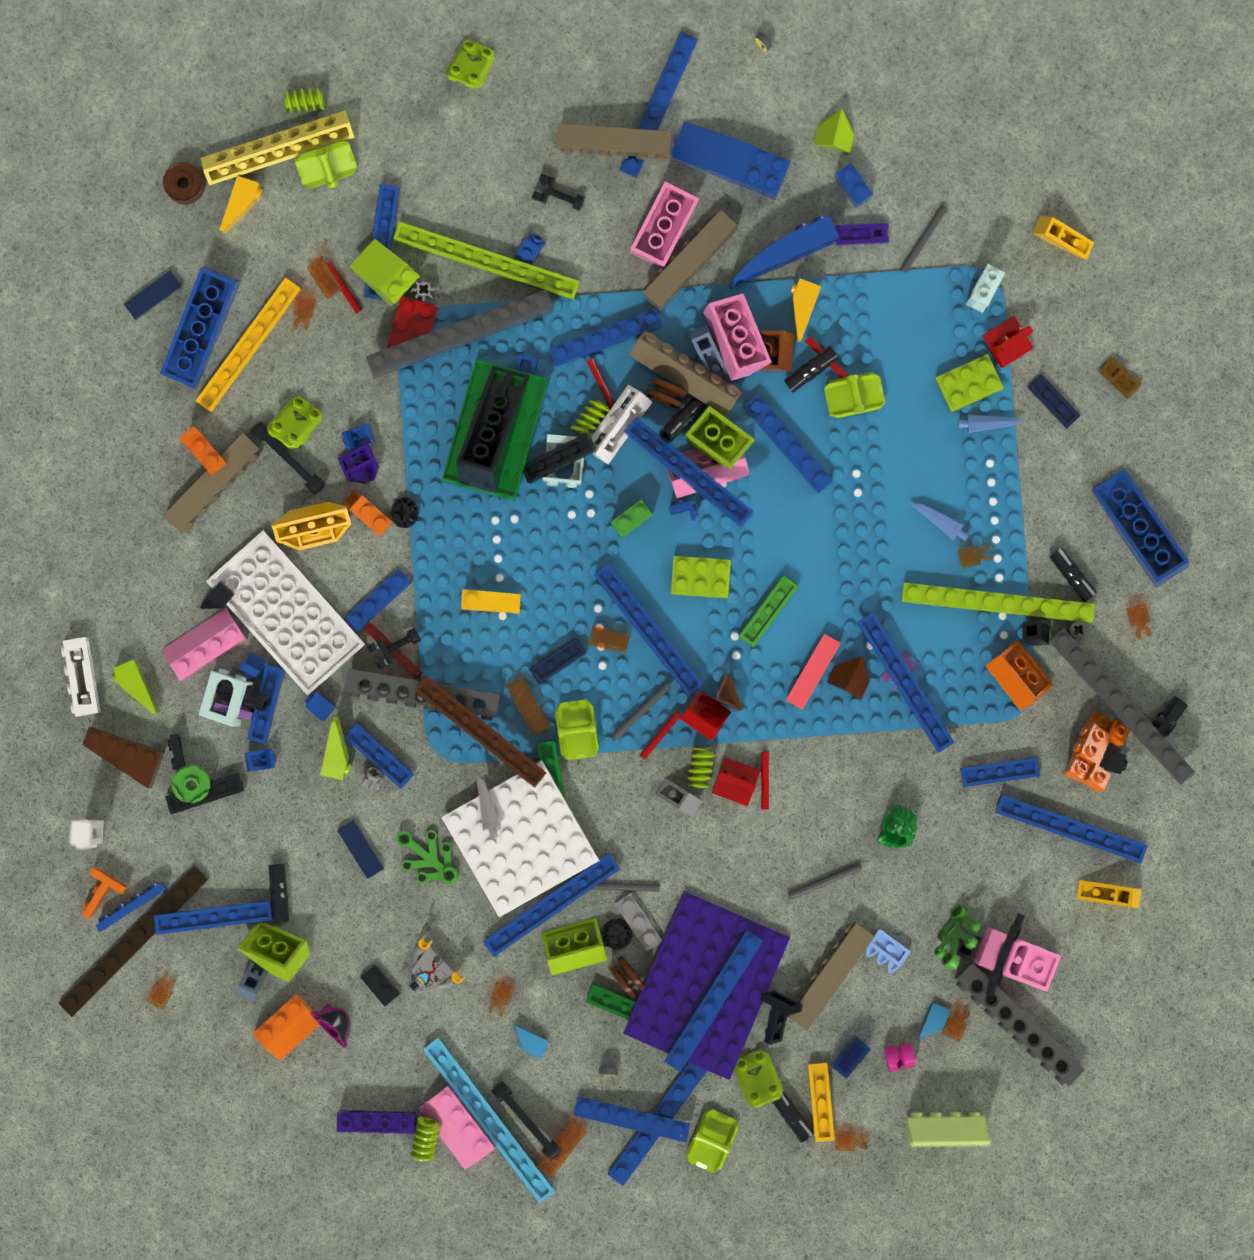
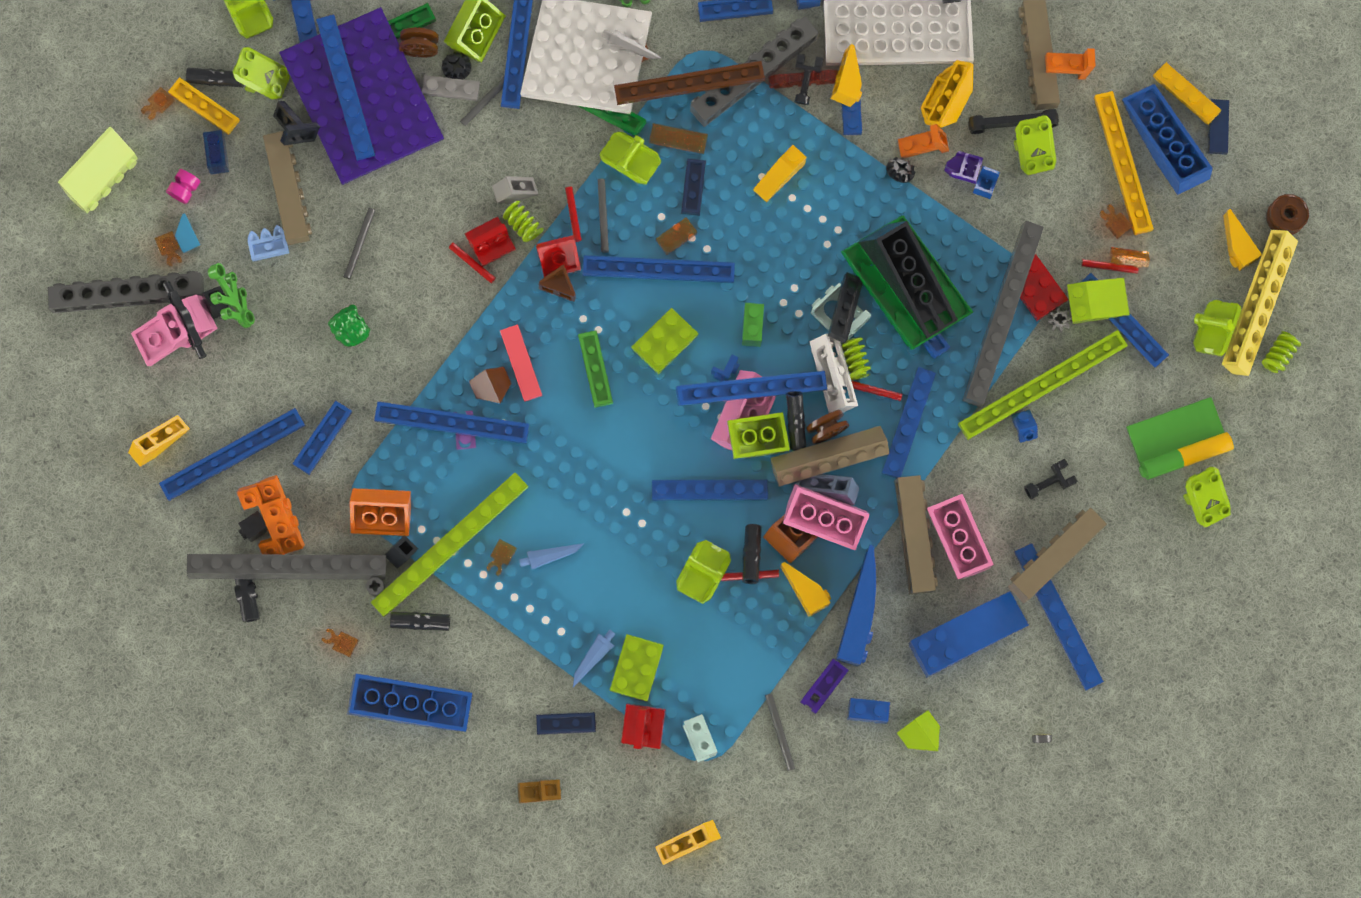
camera: 125 degrees right, 10 degrees down
(146, 341) = (1187, 93): none -> yellow plate
(368, 612) = (848, 79): none -> yellow slope
(440, 124) = (1179, 438): none -> bright green door

